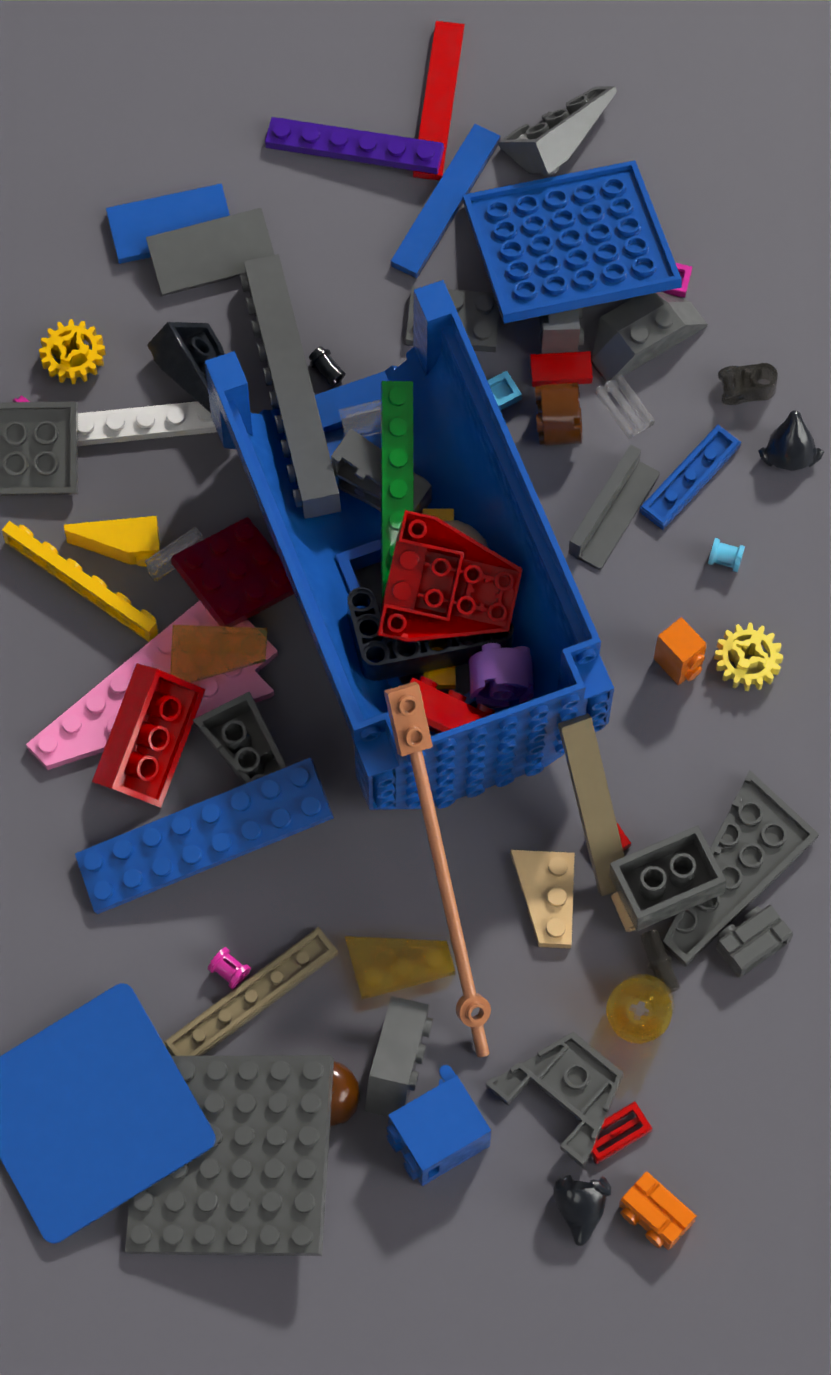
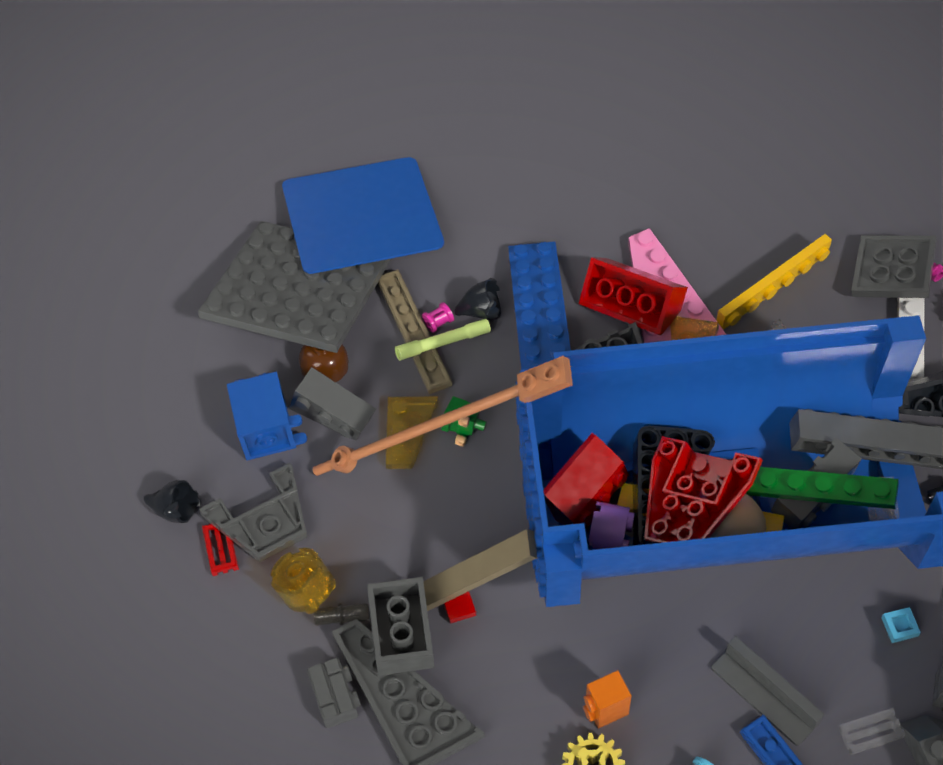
camera: 110 degrees right, 10 degrees down
(121, 539) = (806, 309): yellow slope -> none
(196, 920) = (480, 301): none -> black hat
(288, 974) = (418, 346): none -> yellowish green piece
(372, 896) = (465, 425): none -> green piece
(548, 892) = (426, 547): tan wing -> none
(559, 414) = (866, 661): reddish brown brick -> none
(561, 368) = (919, 685): red tile -> none
(656, 1211) = (145, 556): orange brick -> none

